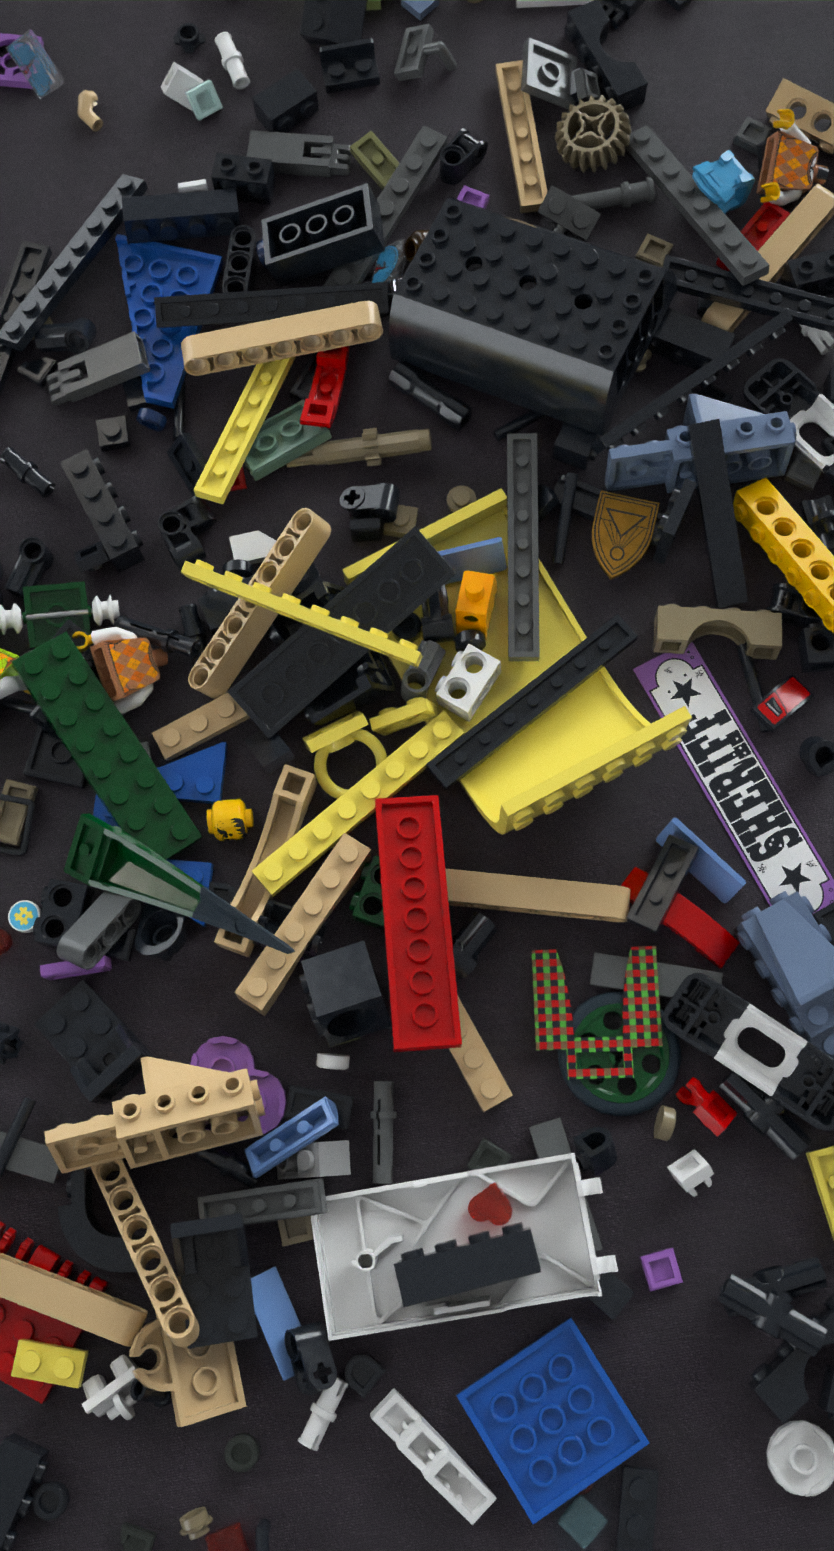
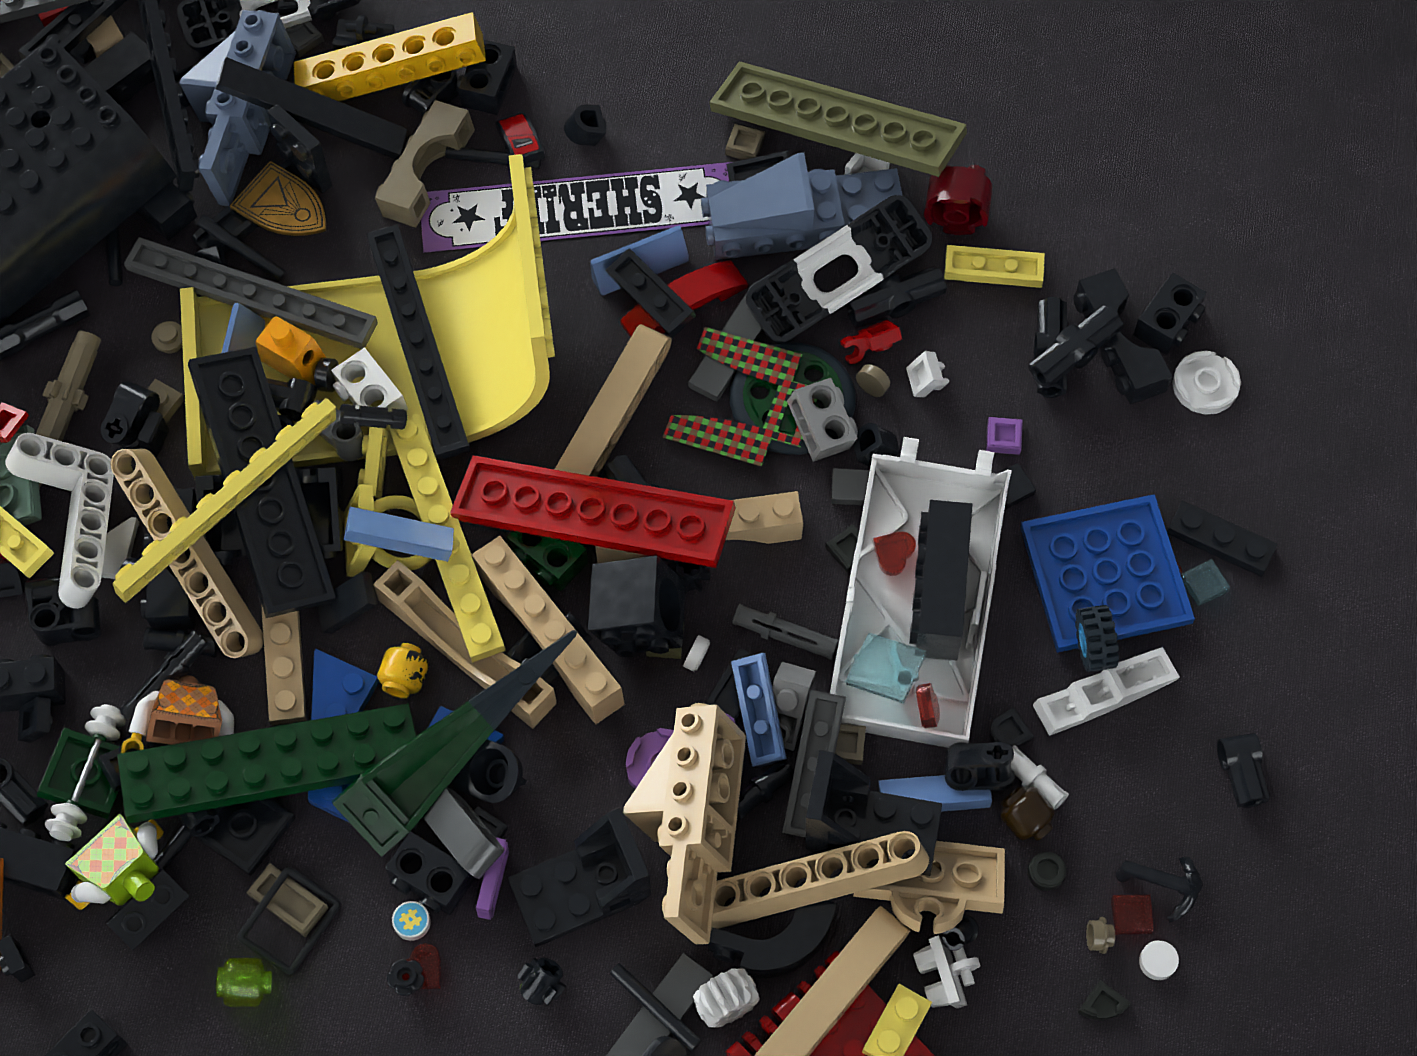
camera: 75 degrees left, 10 degrees down
(30, 1204) = (726, 997): none -> white gear
(269, 508) = (91, 483): none -> white beam
(285, 1417) = (1027, 813): none -> dark brown head
(331, 765) = (399, 534): none -> medium blue slope
(345, 1292) = (928, 705): none -> clear red tile
(368, 1240) = (886, 668): none -> clear light blue piece
(434, 696) = (372, 416): none -> black axle
(465, 1435) = (1097, 638): none -> black wheel
(590, 1086) = (814, 420): none -> light grey brick

